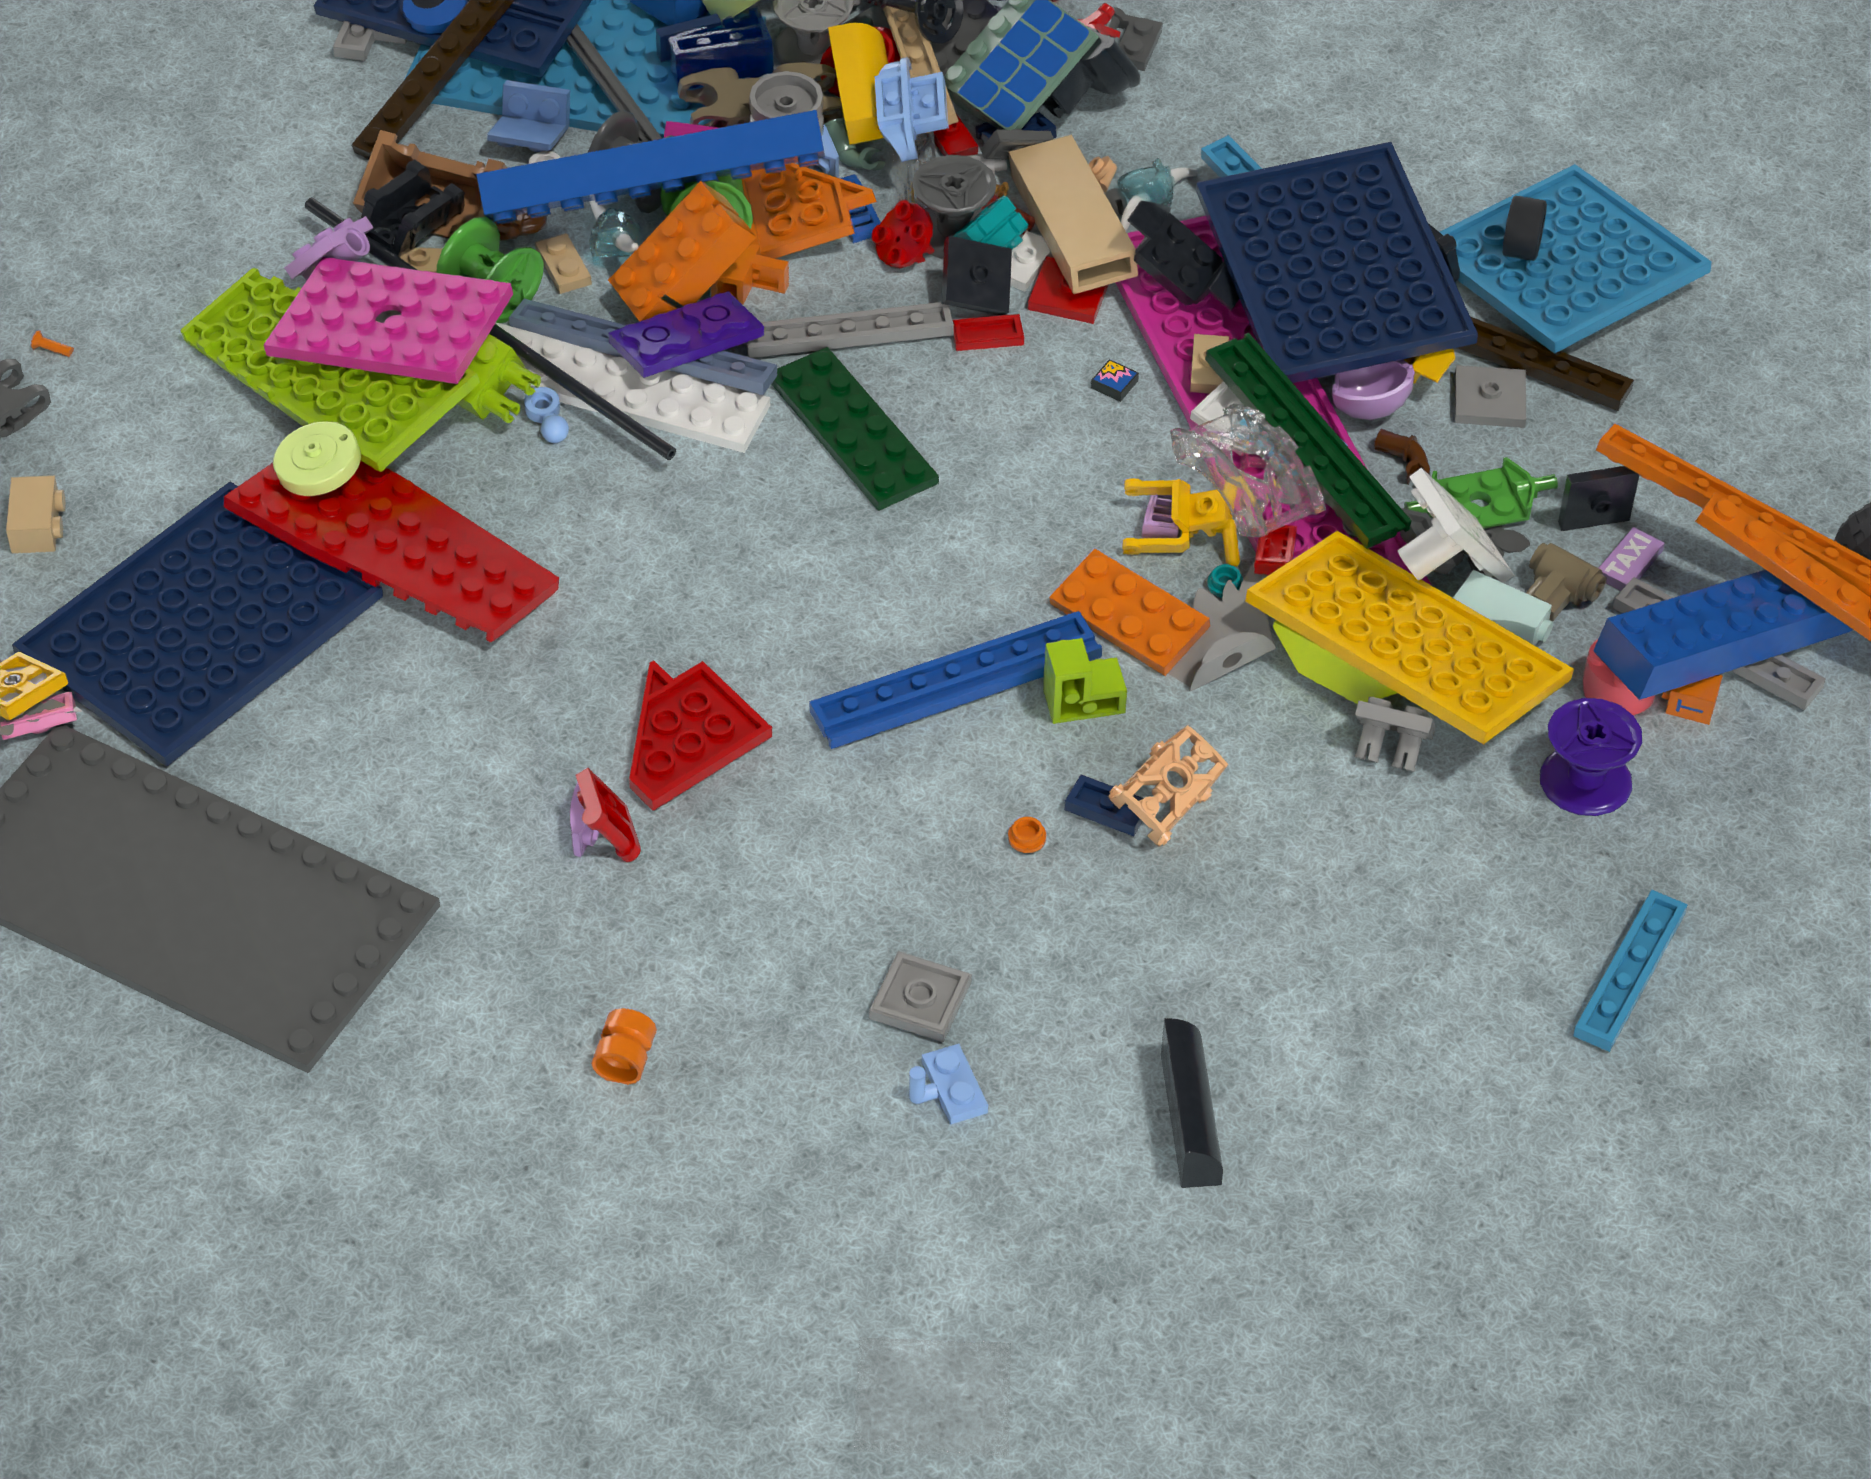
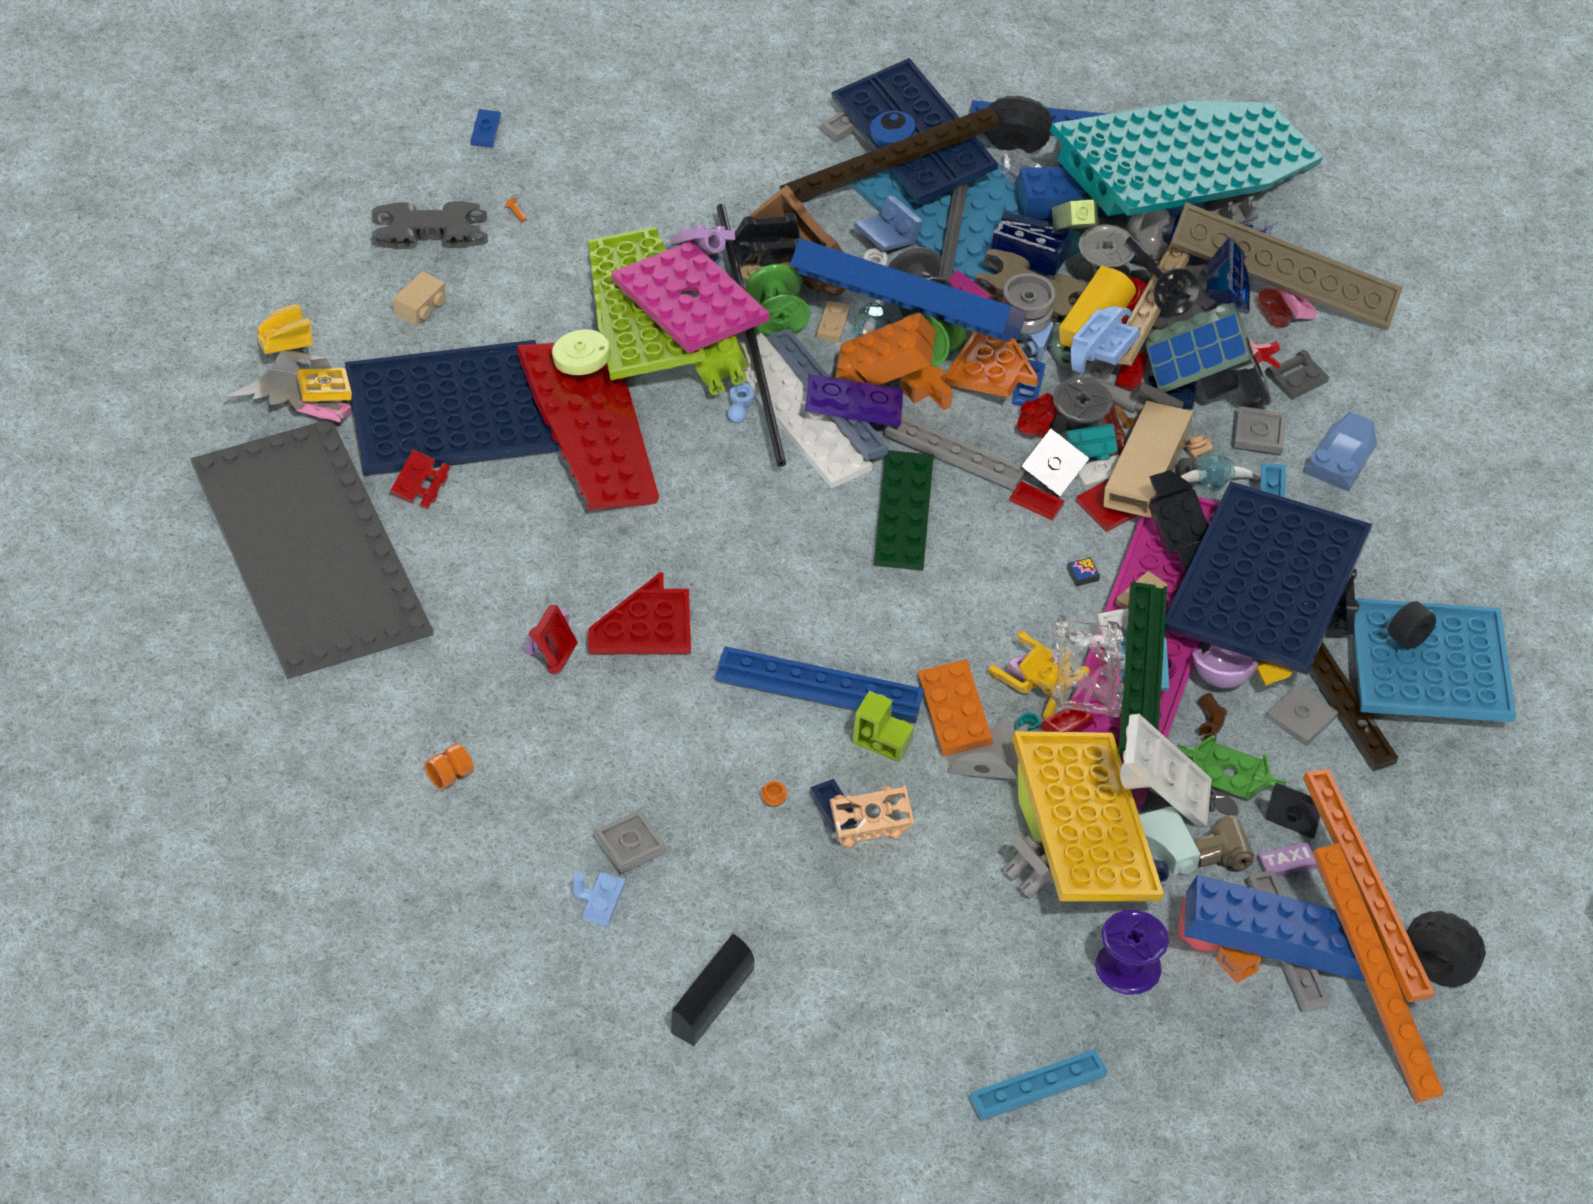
camera: 35 degrees right, 0 degrees up
(236, 729) = (414, 474): none -> red plate
(1149, 119) = (1260, 430): none -> light grey plate
(1254, 94) = (1343, 451): none -> medium blue slope

